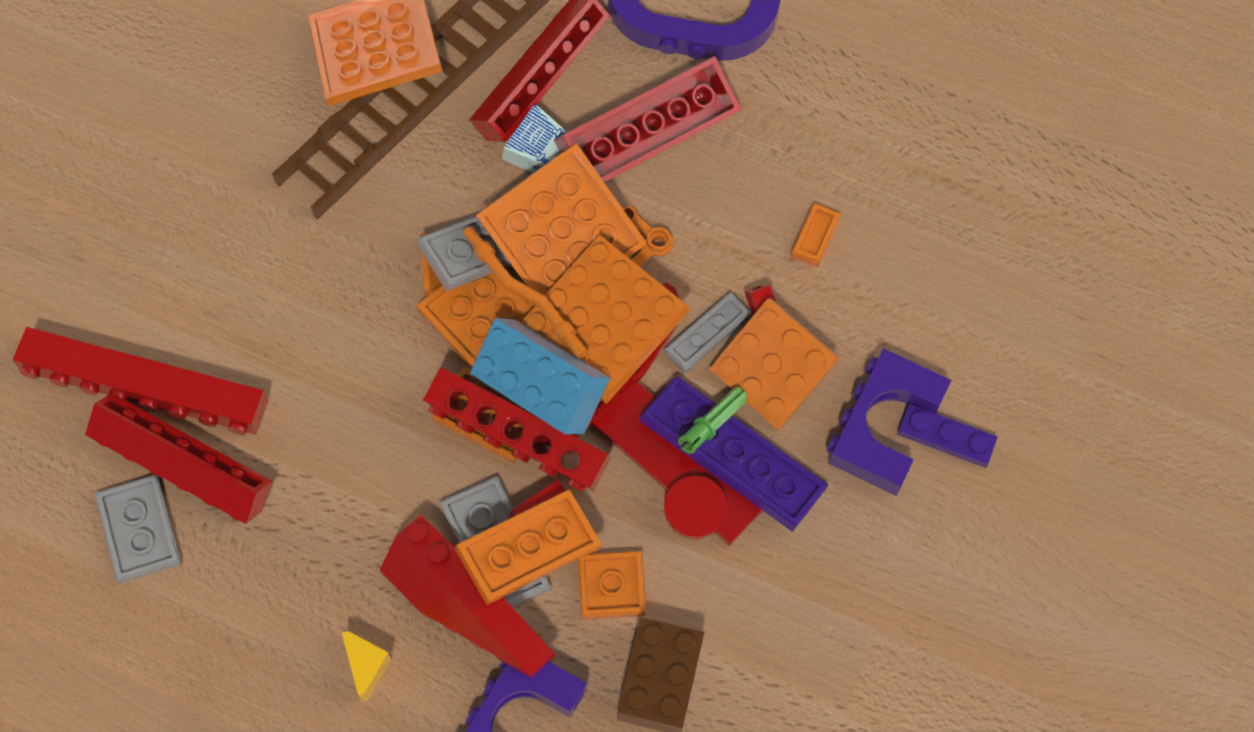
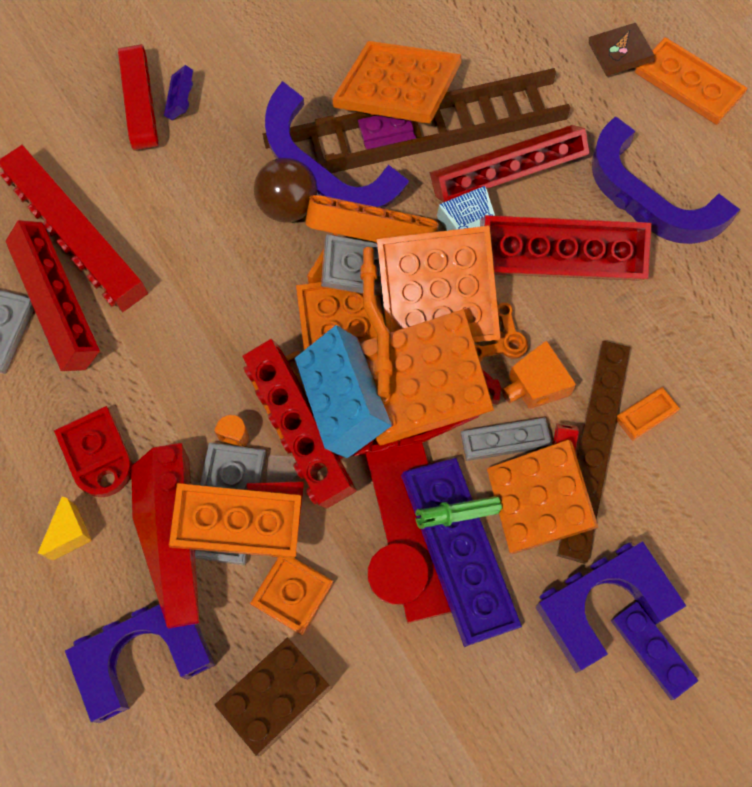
camera: 40 degrees right, 0 degrees up
(106, 207) = (138, 97): none -> red beam
(147, 179) = (178, 93): none -> dark purple plate
(332, 578) = (93, 450): none -> red tile
(343, 217) = (284, 189): none -> reddish brown piece
(348, 186) = (280, 112): none -> dark purple arch
(393, 104) = (384, 130): none -> magenta plate
(444, 203) = (363, 220): none -> orange beam
(455, 477) = (232, 431): none -> orange brick
(524, 484) = (281, 469): none -> clear tile
(702, 259) = (539, 378): none -> orange torso
(785, 278) = (597, 438): none -> reddish brown plate

